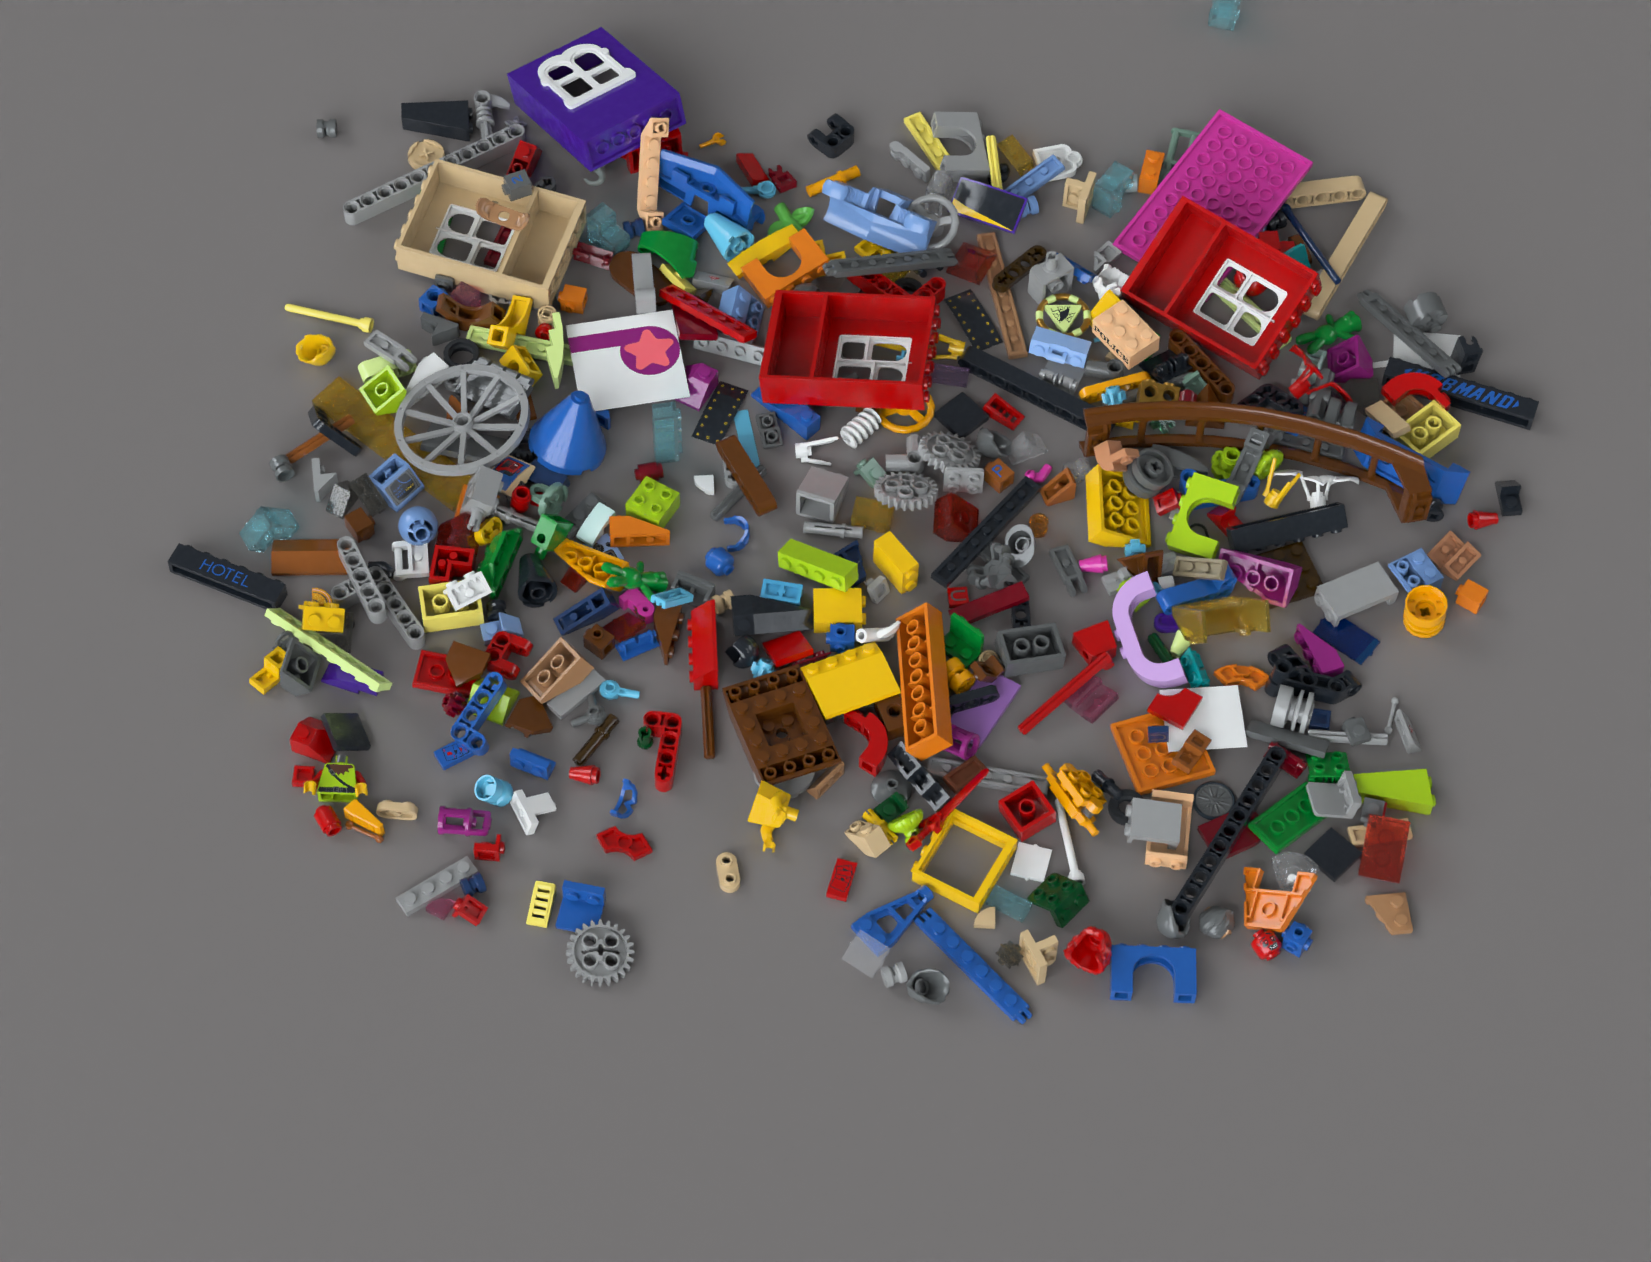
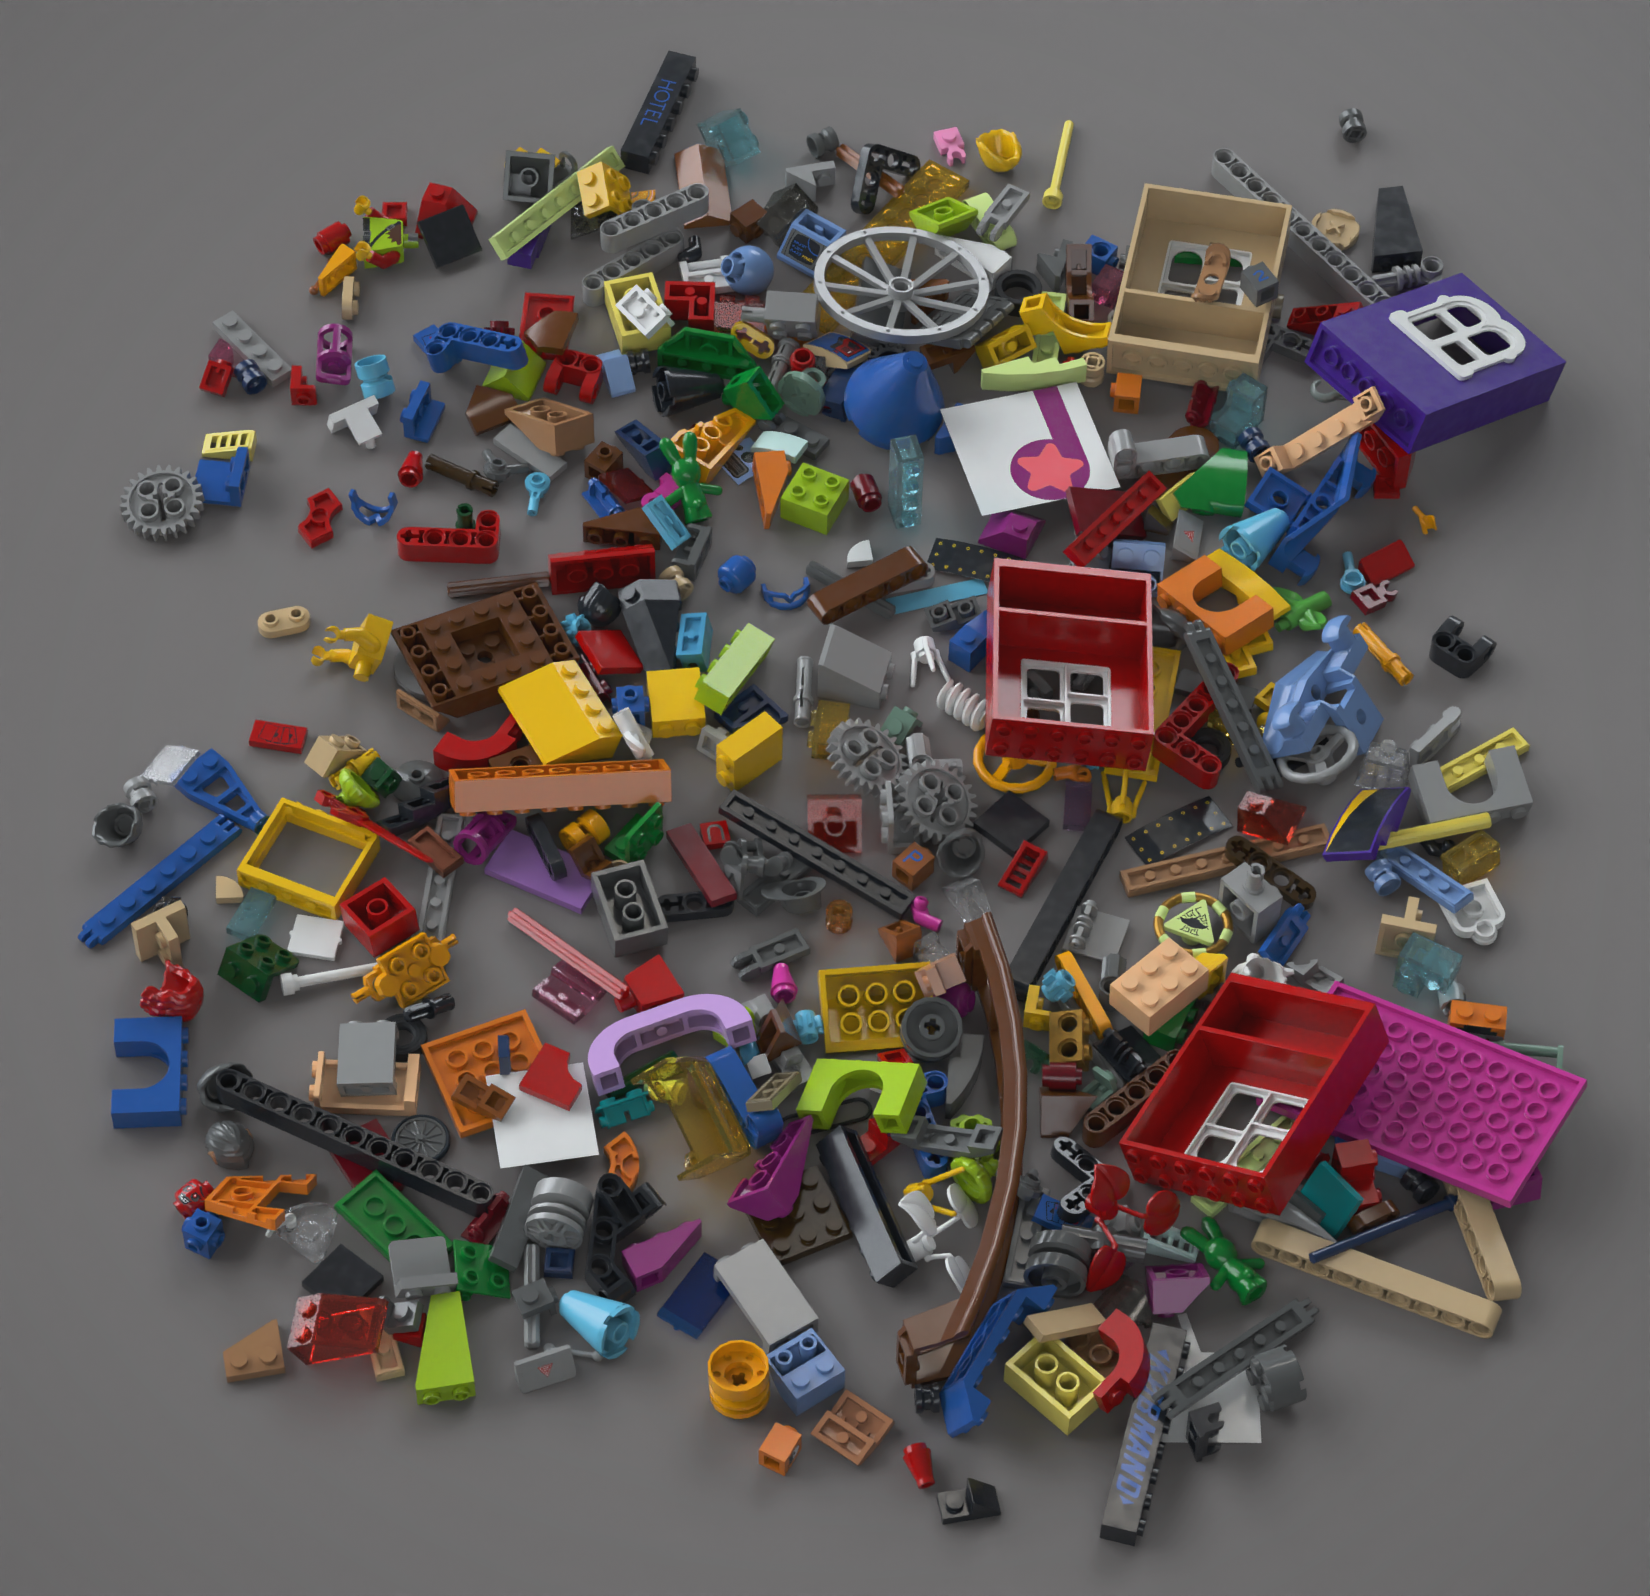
camera: 85 degrees right, 5 degrees down
(294, 386) = (950, 143): none -> bright pink plate
(1060, 347) = (1140, 909): light blue piece -> none
(1375, 692) = (600, 1321): none -> medium azure cone

